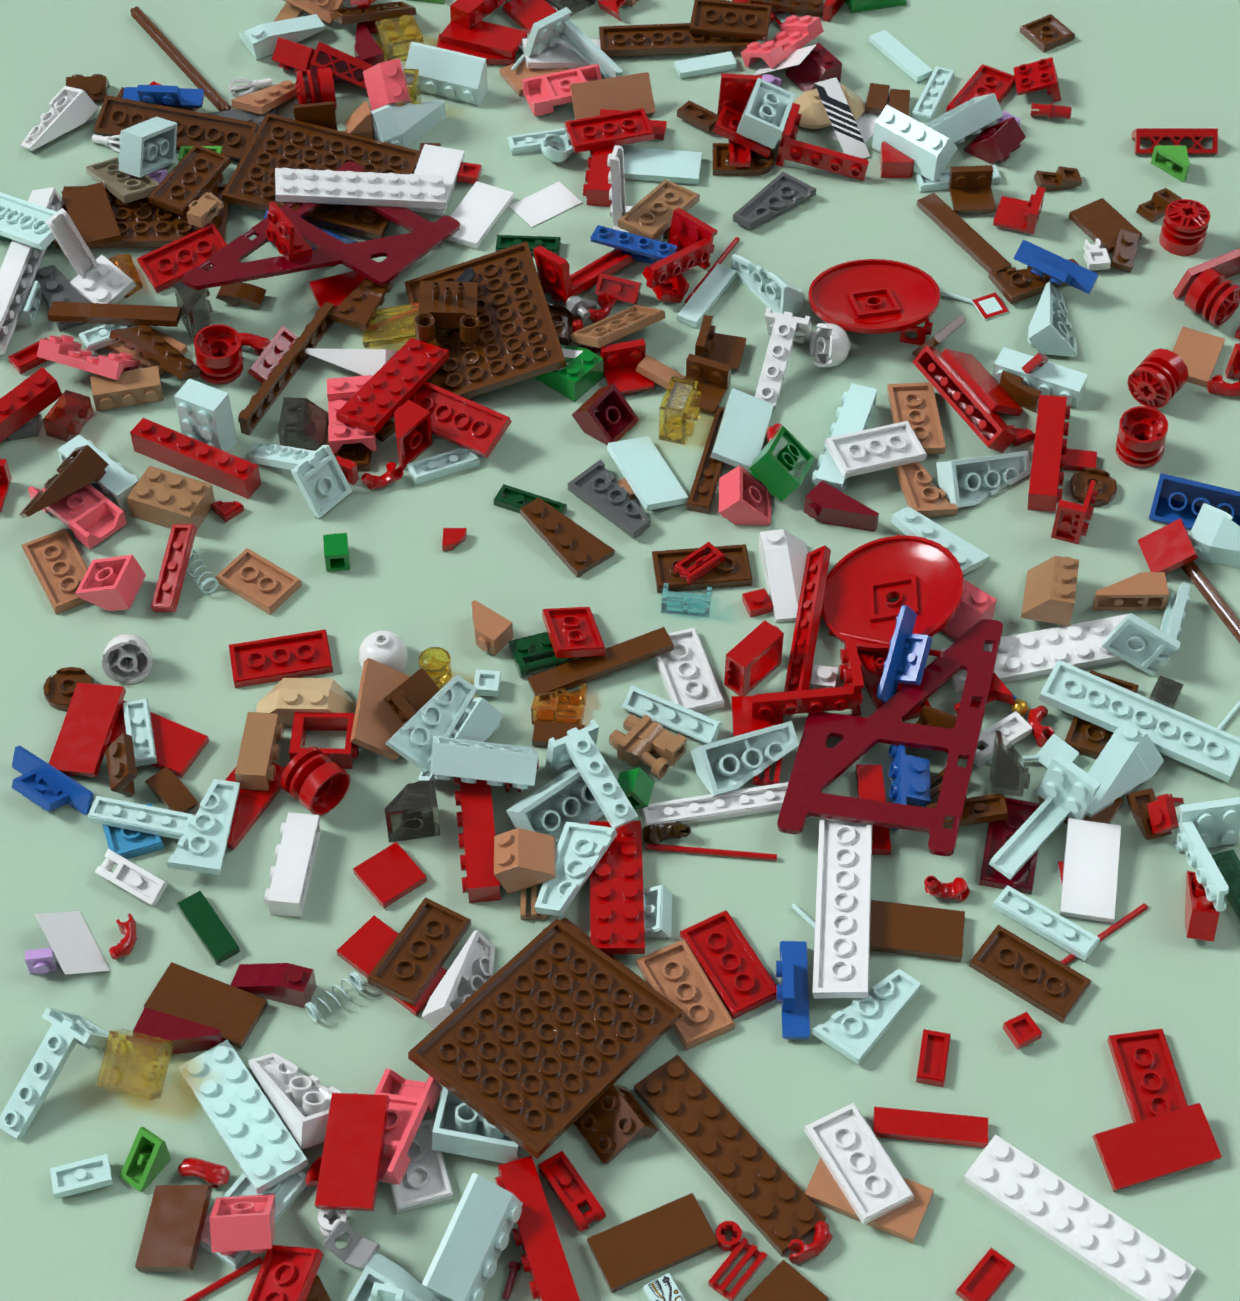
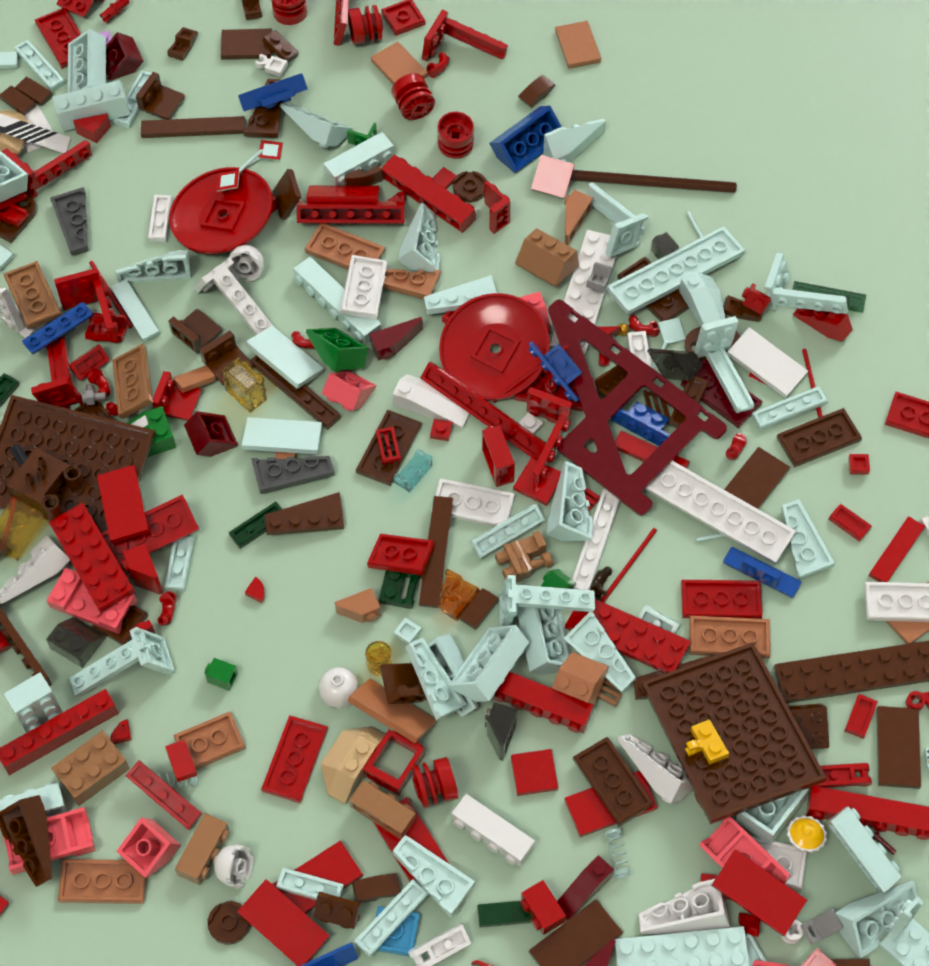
camera: 60 degrees left, 10 degrees up
(149, 623) = (202, 849): none -> medium nougat brick
(217, 562) = (181, 761): none -> red tile
(223, 947) = (542, 907): none -> red brick
(458, 1172) = (807, 834): none -> yellow piece
(467, 379) = (123, 504): none -> red tile
(508, 1010) = (708, 742): none -> yellow plate
(668, 1181) = (861, 716): none -> red tile
(816, 266) = (160, 218): none -> white tile
(916, 281) = (230, 179): none -> light aqua piece
(1020, 214) = (201, 82): red bracket -> none
(1038, 360) = (355, 152): red tile -> none
(1061, 648) = (599, 277): none -> light grey bracket
(1064, 360) = (356, 138): none -> green bracket

